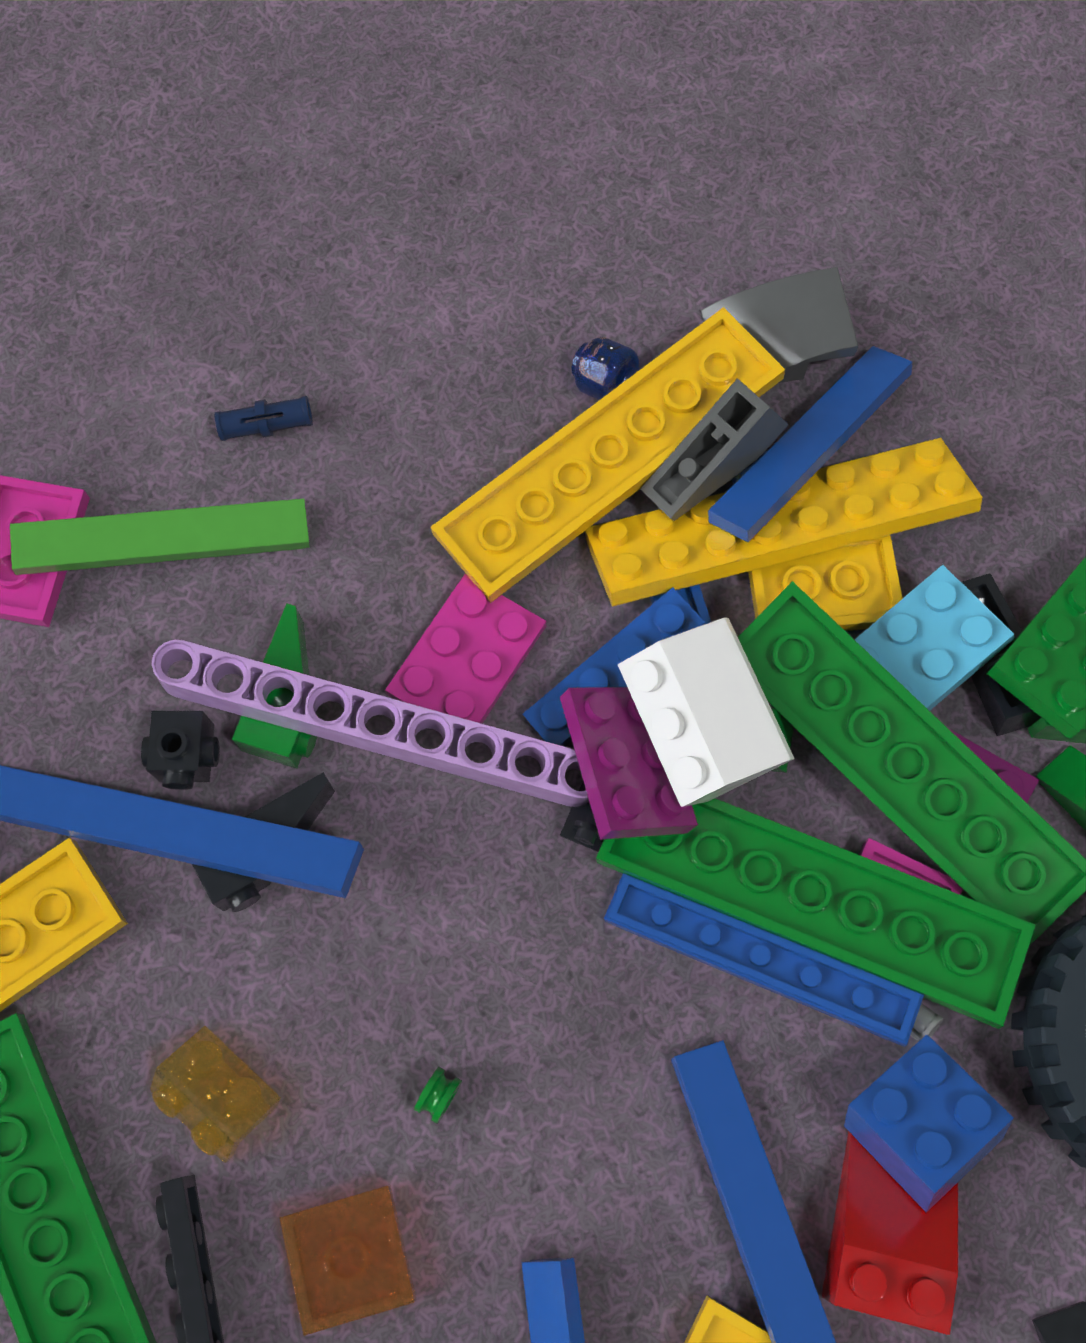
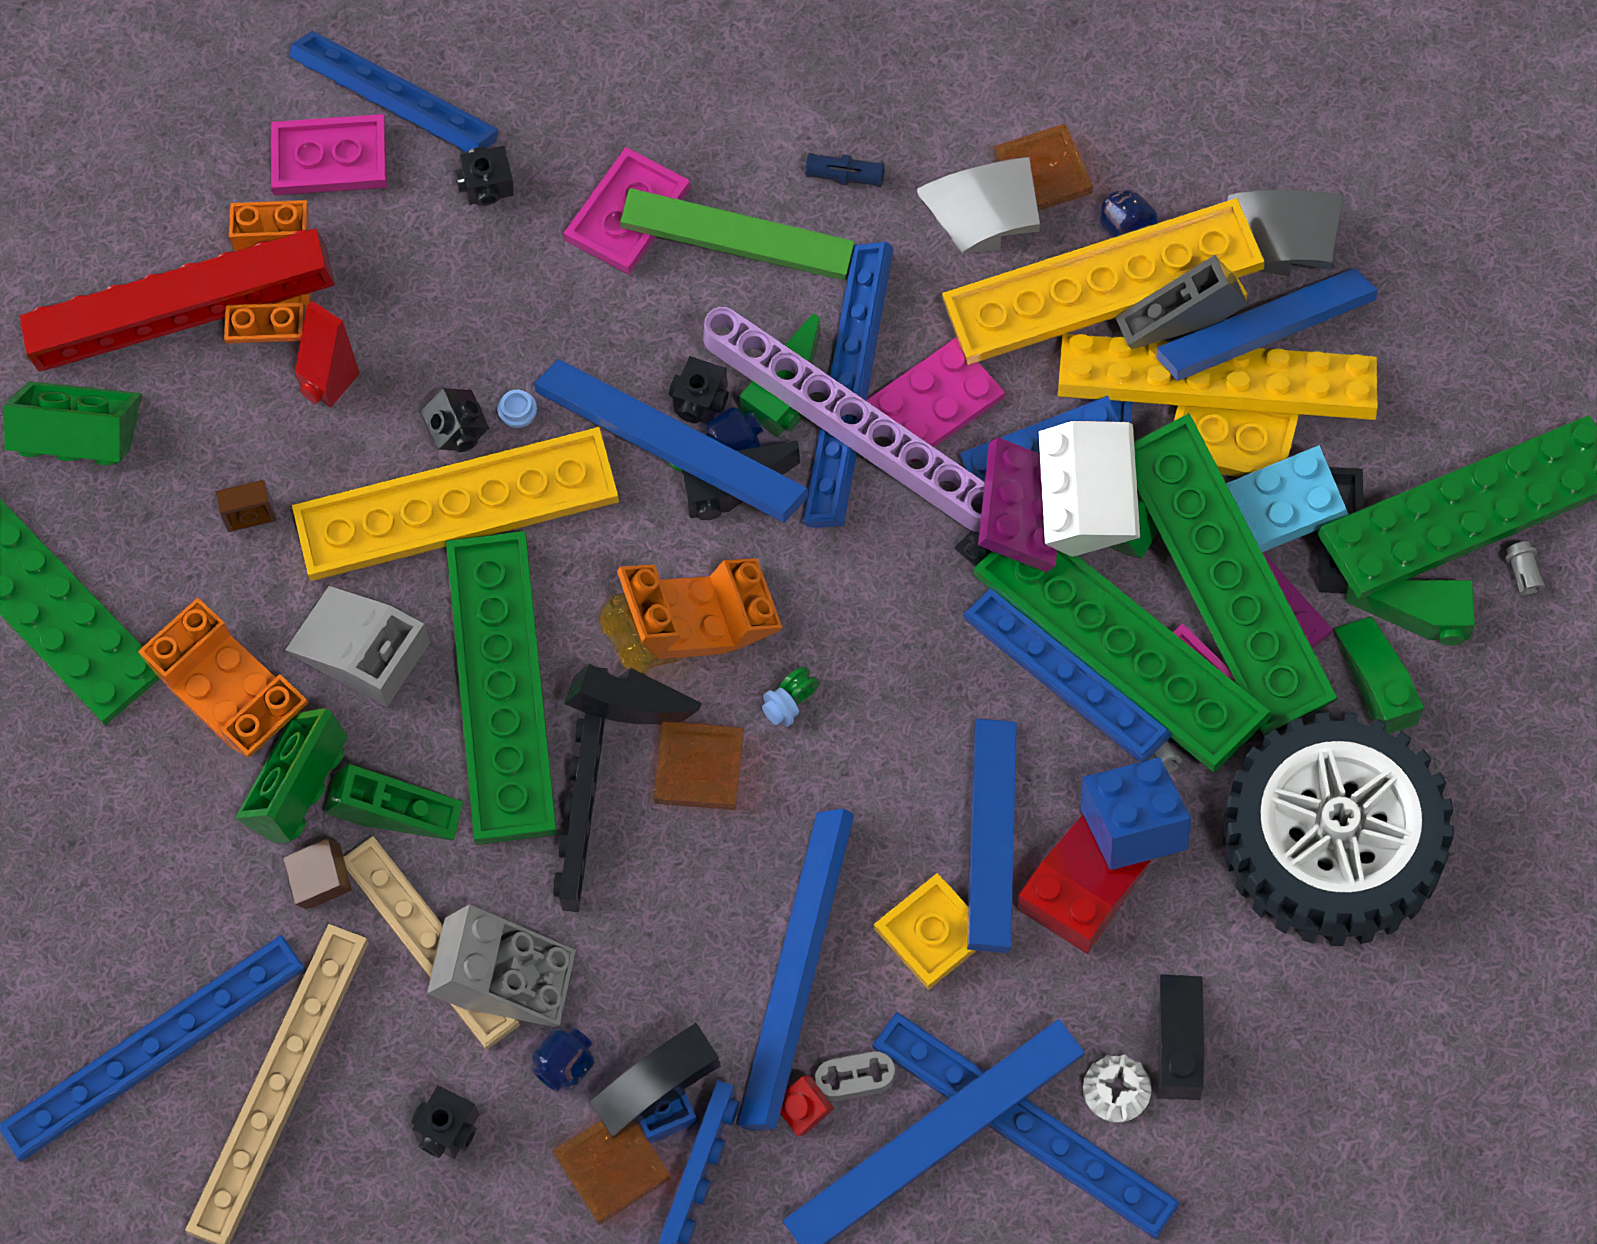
camera: 25 degrees right, 5 degrees down
(221, 1217) = (628, 698): none -> black slope
(241, 785) = (735, 429): none -> clear blue head
(268, 1049) = (700, 612): none -> orange slope
(358, 663) = (852, 368): none -> blue tile
(424, 1135) = (780, 707): none -> light blue plate
(439, 406) = (984, 204): none -> light grey slope
(488, 346) = (1054, 165): none -> clear orange plate

